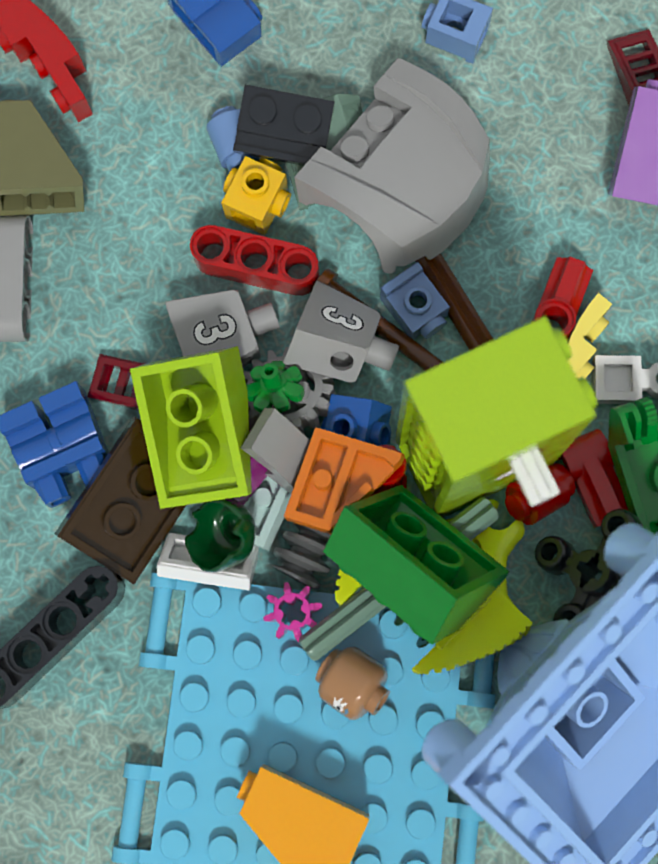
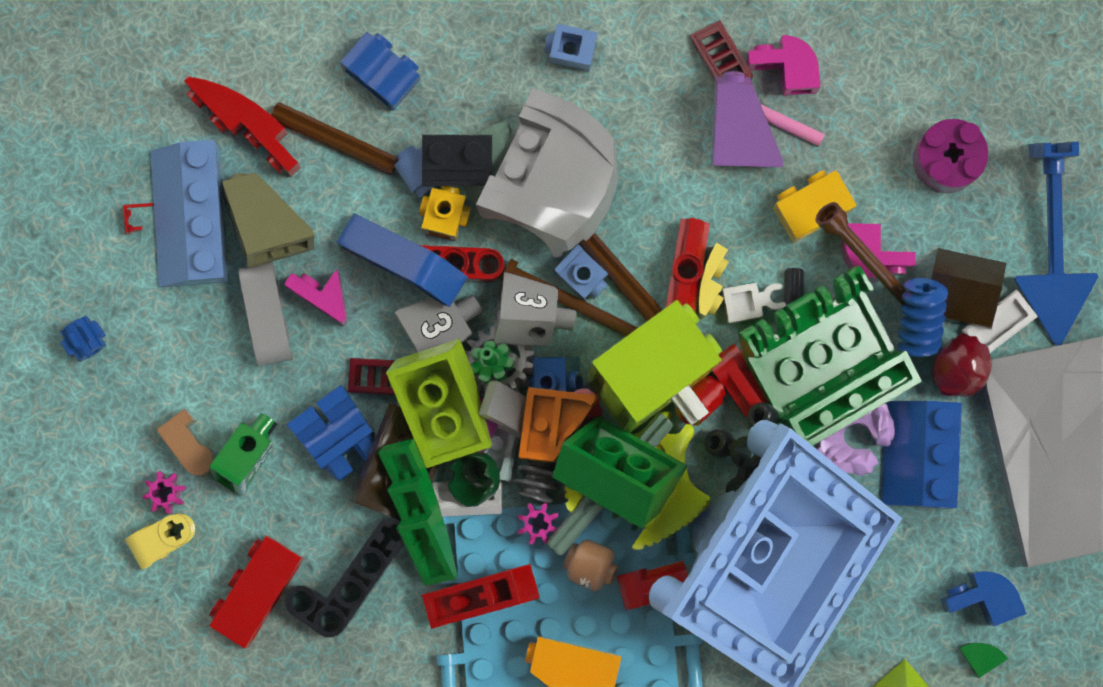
camera: 25 degrees left, 5 degrees up
(86, 272) = (329, 300): none -> dark pink slope
(140, 577) = (420, 513): none -> green slope
(141, 84) = (334, 138): none -> reddish brown axle
(192, 237) = (402, 259): none -> blue beam
(198, 694) = (481, 596): none -> red slope
(410, 722) = (637, 584): none -> red piece

